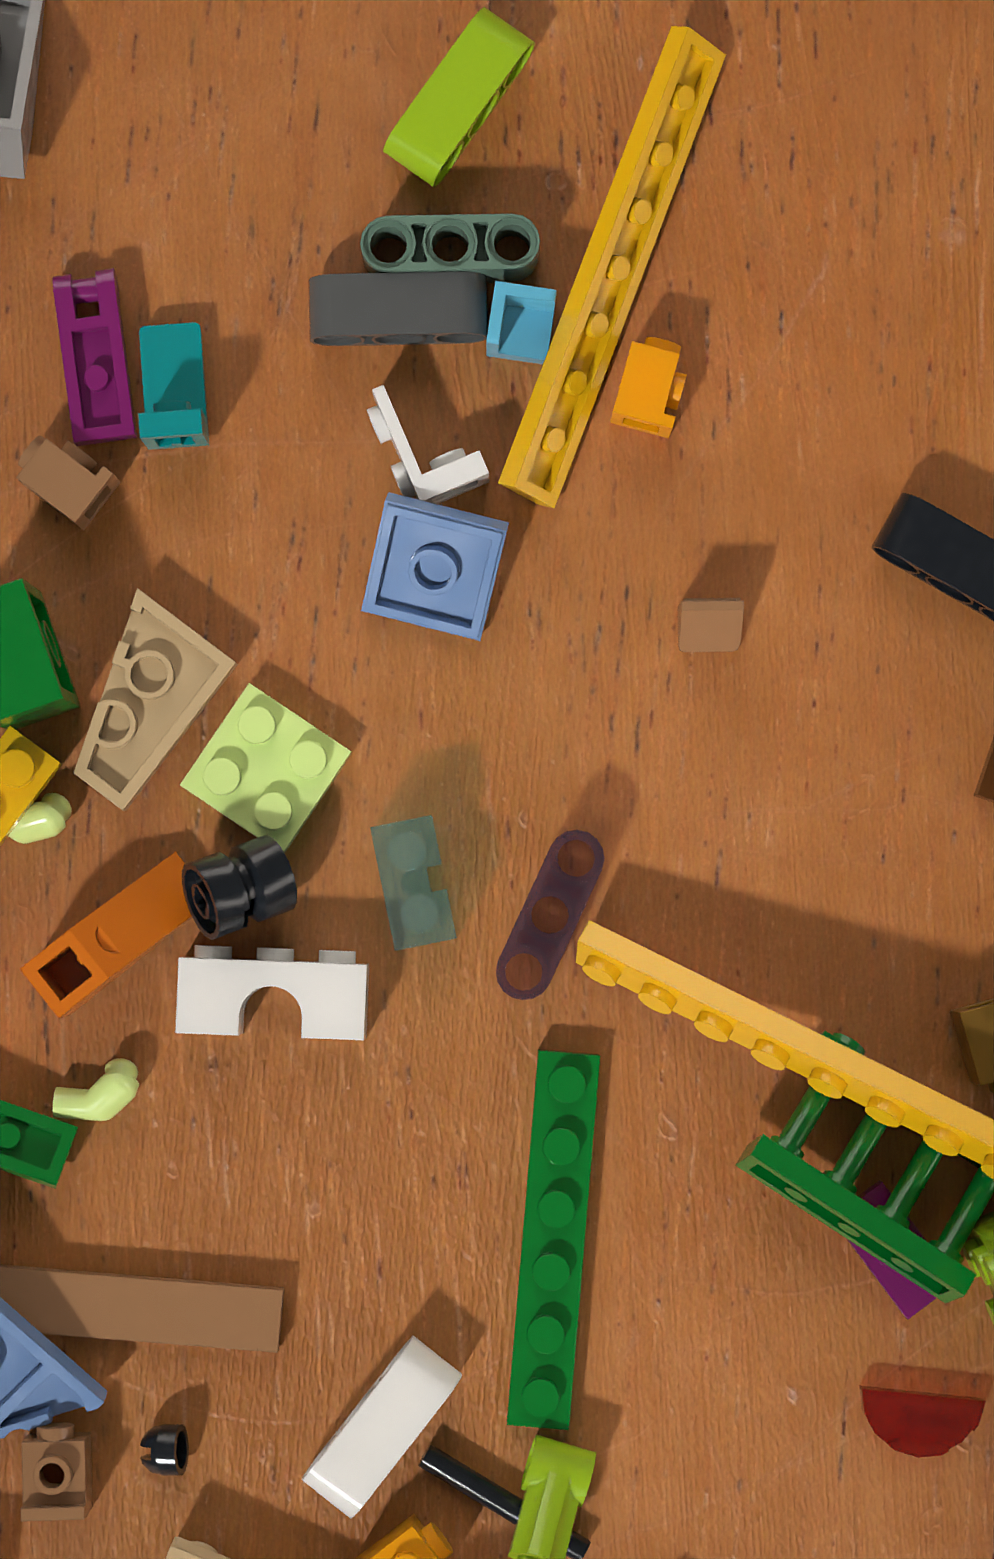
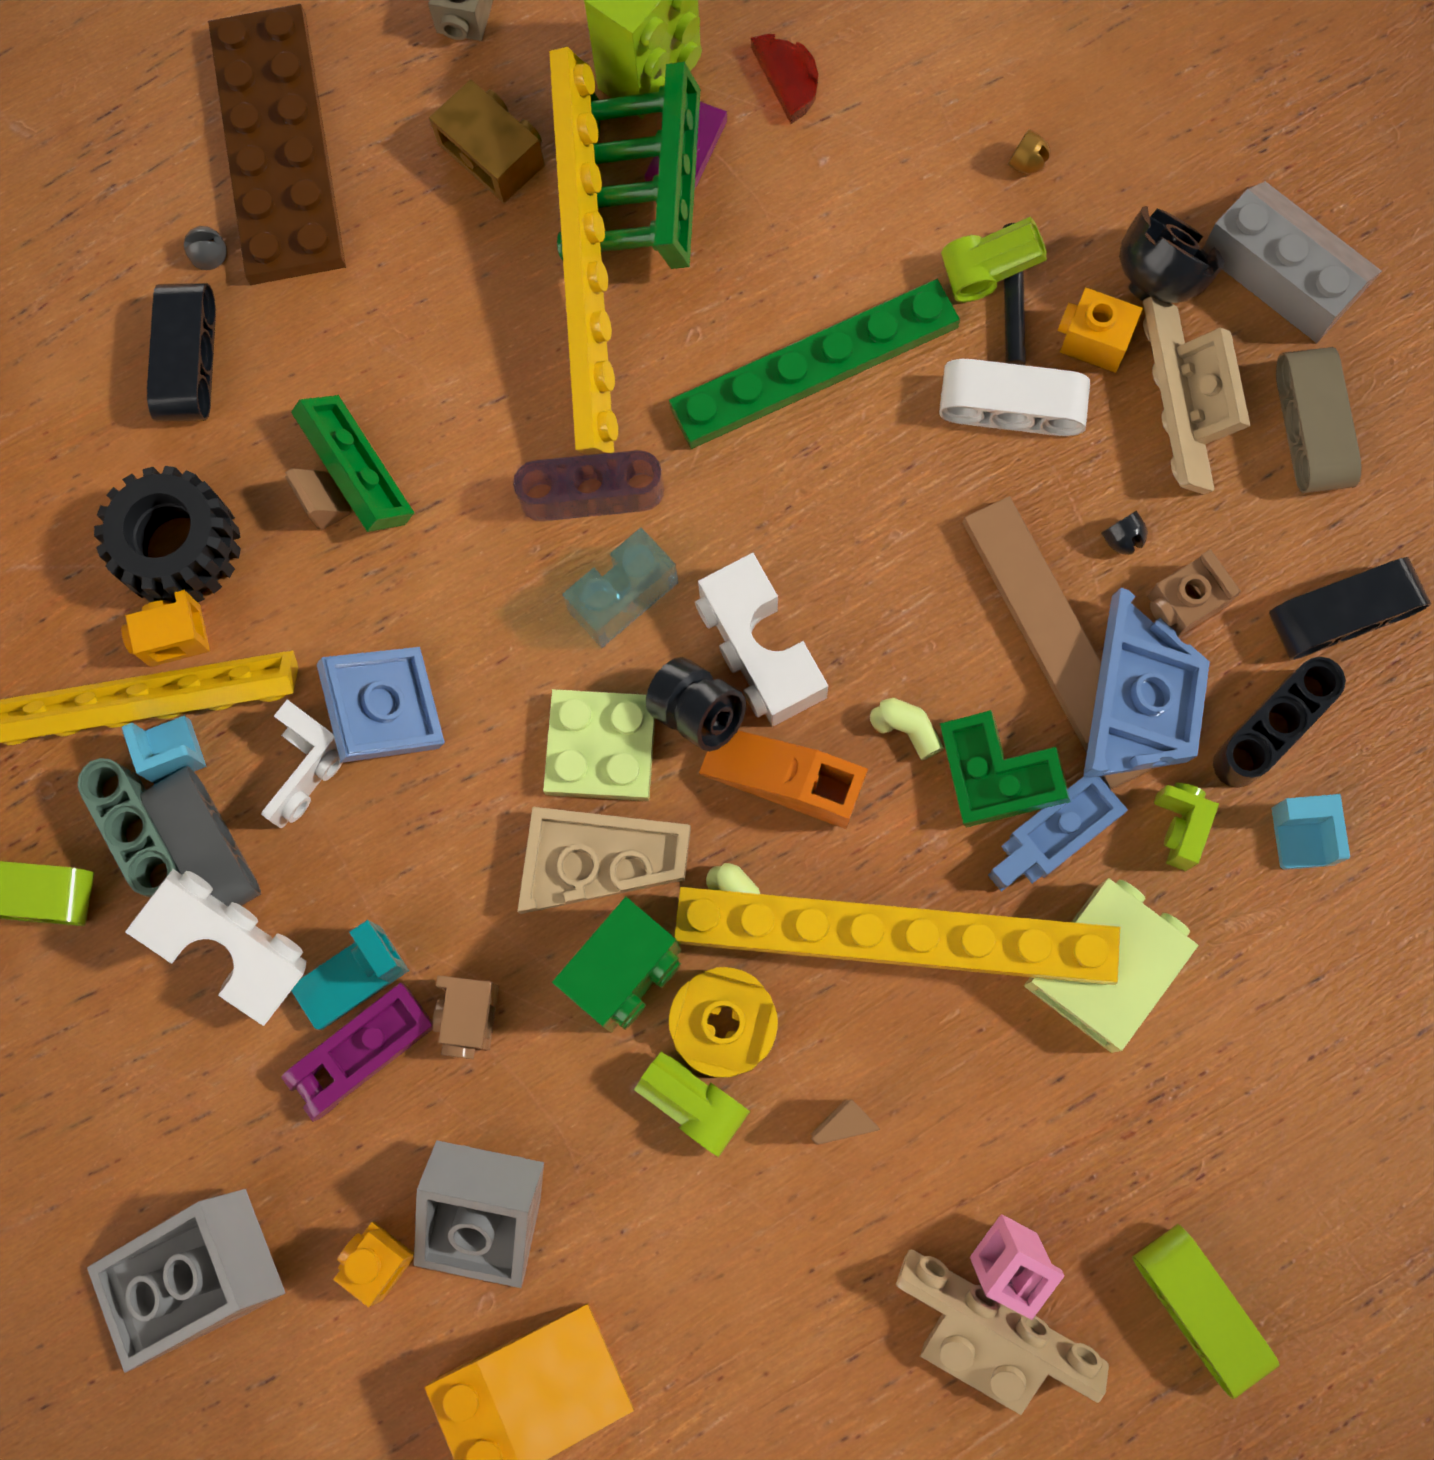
camera: 110 degrees left, 10 degrees down
(314, 258) = (186, 912): none -> white arch
(725, 679) = (352, 462): none -> green plate
(763, 391) = (147, 505): none -> black tyre

